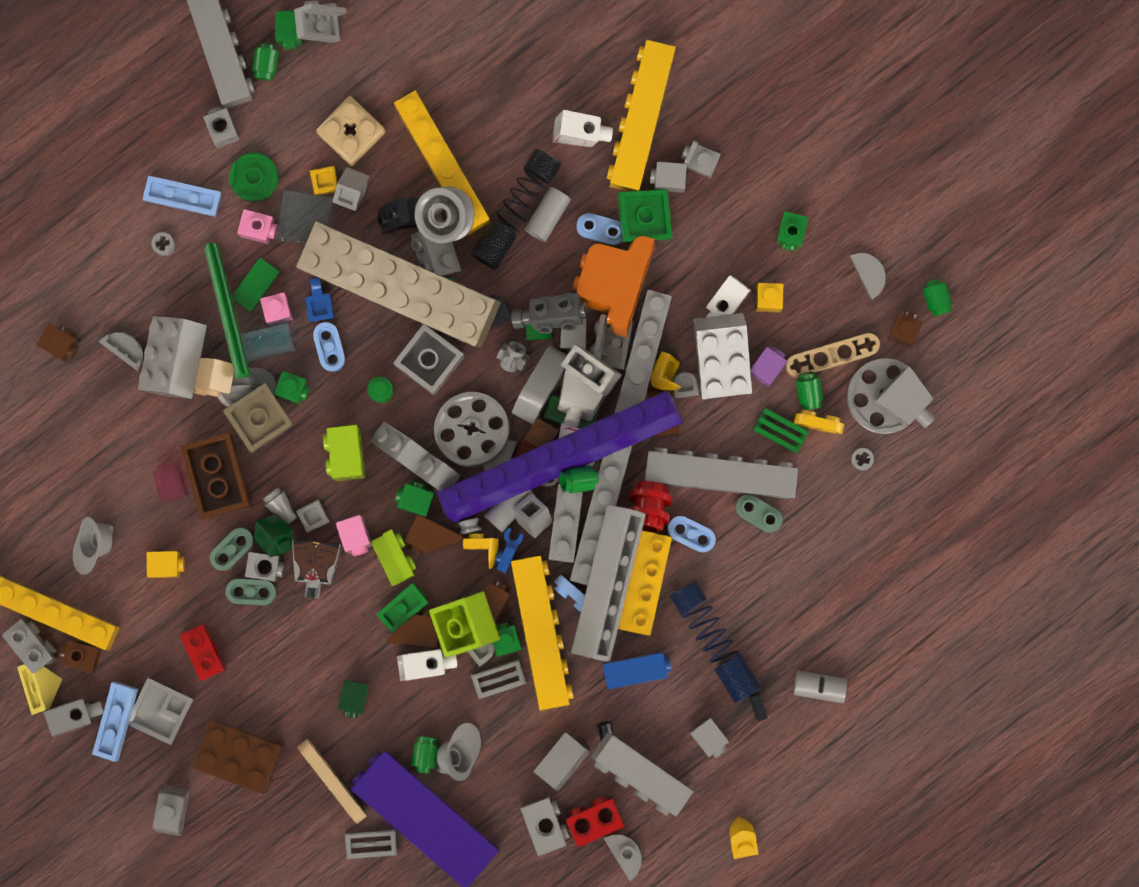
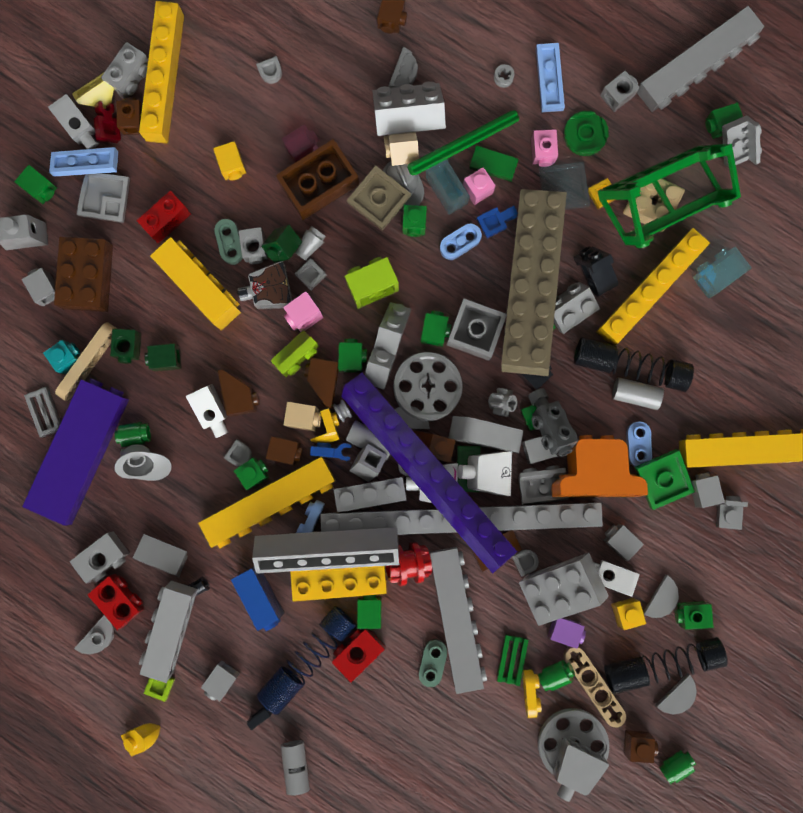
camera: 75 degrees right, 0 degrees up
(75, 492) = (270, 70): none -> light grey tile
(82, 686) = (105, 125): none -> dark red plate
(91, 543) = (230, 96): light grey piece -> none
(123, 780) = (36, 184): none -> green brick
(231, 548) = (261, 215): sand green plate -> none
(235, 806) = (40, 286): none -> light grey brick
(265, 62) = (688, 110): green brick -> none
(288, 638) = (192, 280): none -> yellow brick
(319, 802) = (62, 356): none -> teal brick
(320, 725) = (119, 337): none -> dark green brick
(335, 161) = (630, 187): none -> green windscreen
(351, 189) = (599, 219): light grey brick -> none
(380, 390) = (436, 296): green brick -> none
(403, 607) = (253, 375): green plate -> none
(413, 402) = (435, 329): none -> green brick
(448, 86) = (722, 272): none -> clear light blue brick
(459, 214) = (610, 314): light grey wheel -> none
(464, 568) = (302, 417): none -> tan brick
(464, 624) = (251, 433): lime brick -> none
(478, 686) = (206, 461): light grey tile -> none
(570, 129) = (723, 398): white torso -> none
(578, 479) = (411, 494): green brick -> none
(591, 369) = (513, 474): light grey brick -> none
(664, 372) = (531, 539): yellow plate -> none
(686, 562) = (369, 612): none -> green brick
(691, 534) = (395, 608): light blue plate -> none
(694, 280) = (622, 541): none -> light grey brick
(697, 805) = (159, 689): none -> lime tile
(737, 595) = (351, 666): none -> red brick
(767, 256) = (663, 600): none -> light grey tile
(831, 312) = (633, 672): none -> black piece
(865, 466) = (515, 748): light grey bush -> none

